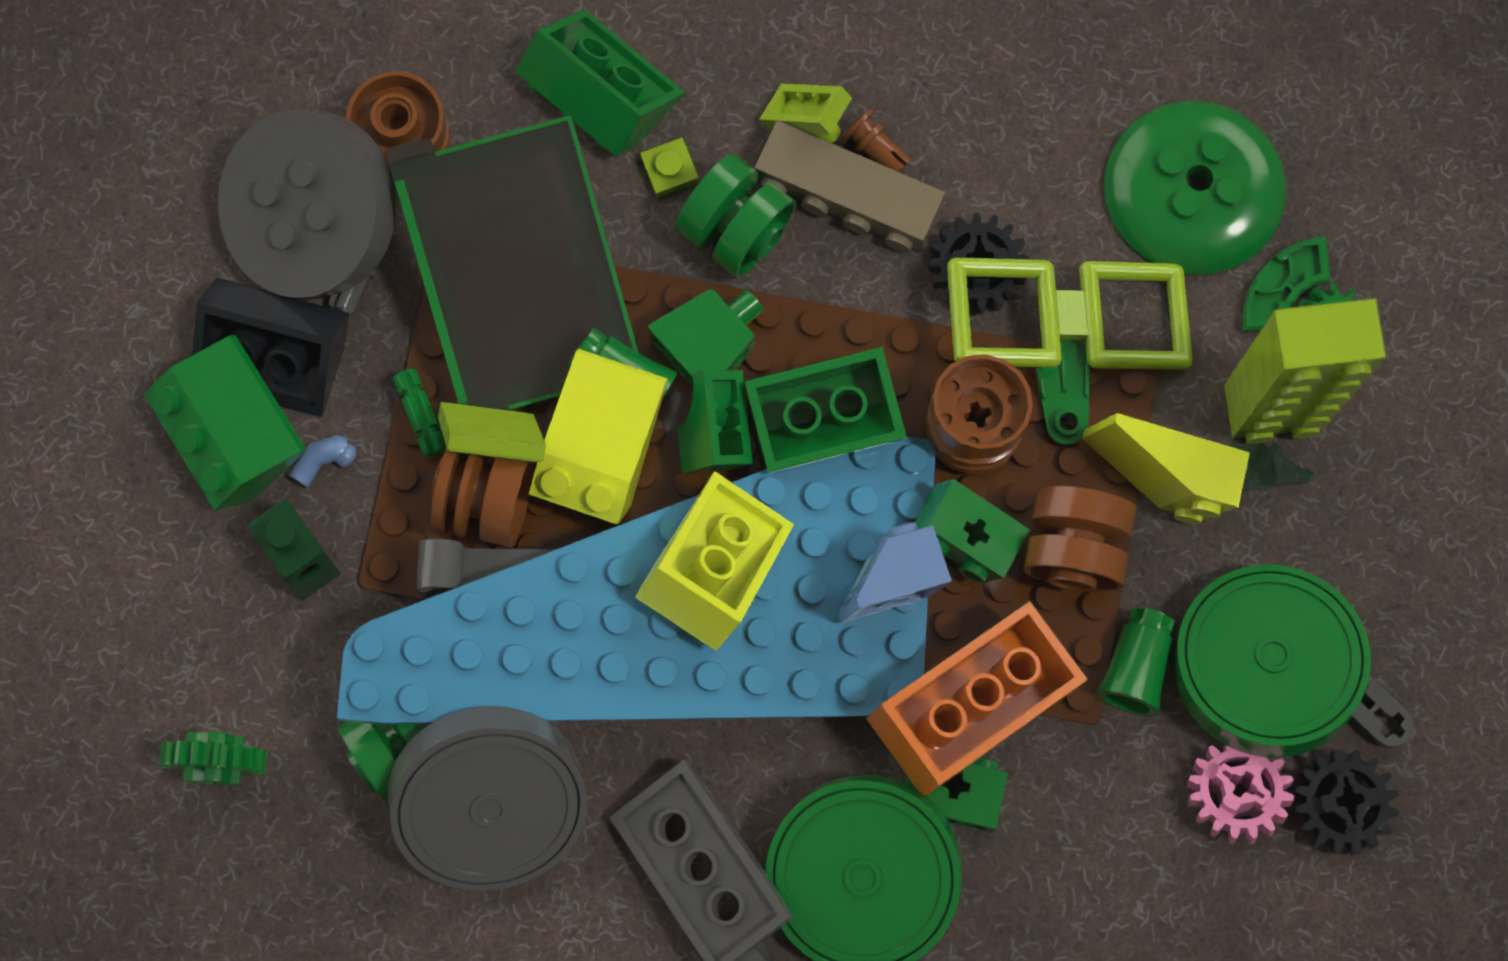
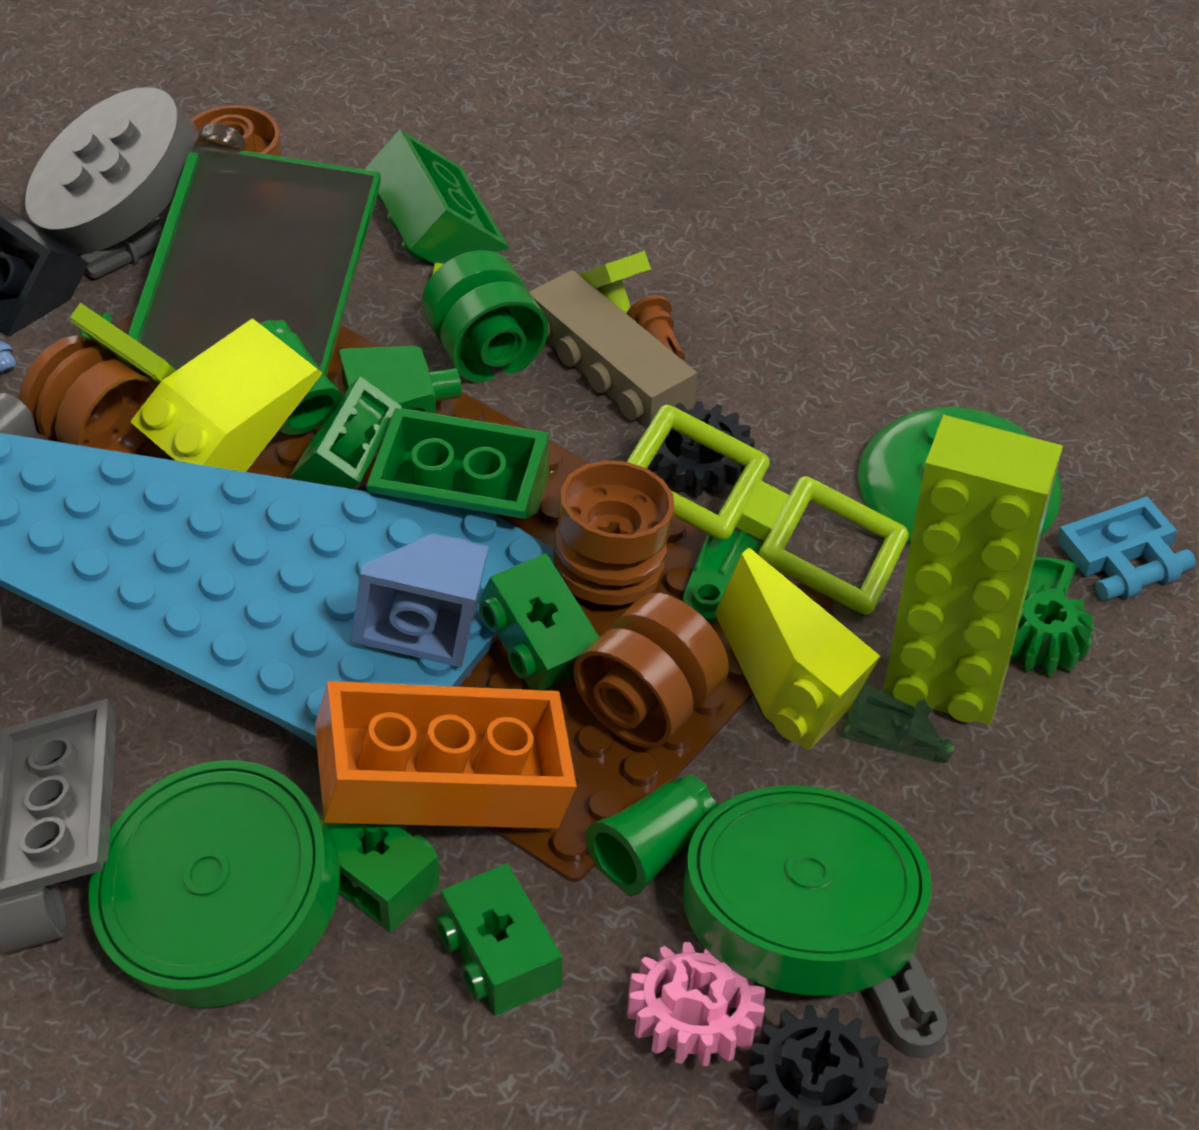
camera: 25 degrees right, 30 degrees down
(715, 562) = (251, 514): neon yellow slope -> none
(1107, 811) = (500, 940): none -> green brick
(1346, 192) = (1120, 535): none -> dark azure plate

